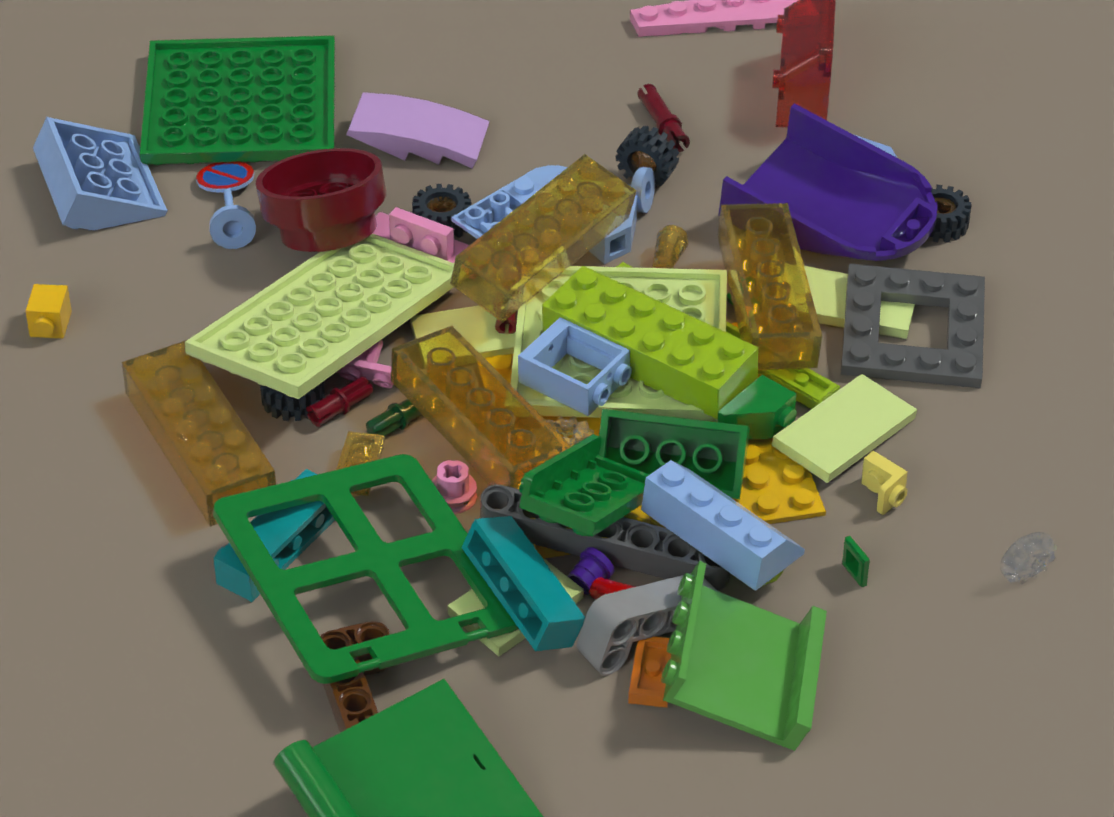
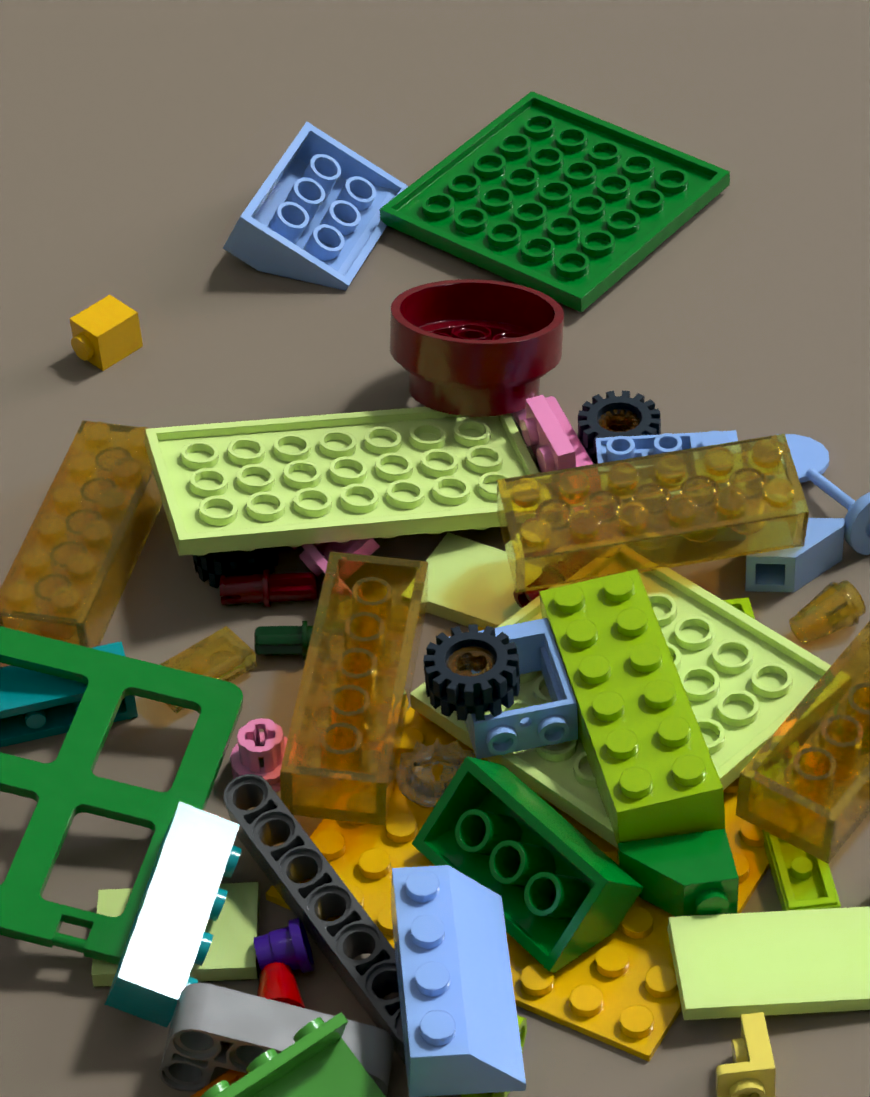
camera: 45 degrees right, 0 degrees up
(232, 224) = (370, 324): light blue piece -> none
(419, 127) = (702, 322): lavender slope -> none
(579, 364) = (450, 676): none -> black bush
(582, 489) = (330, 836): green bracket -> none

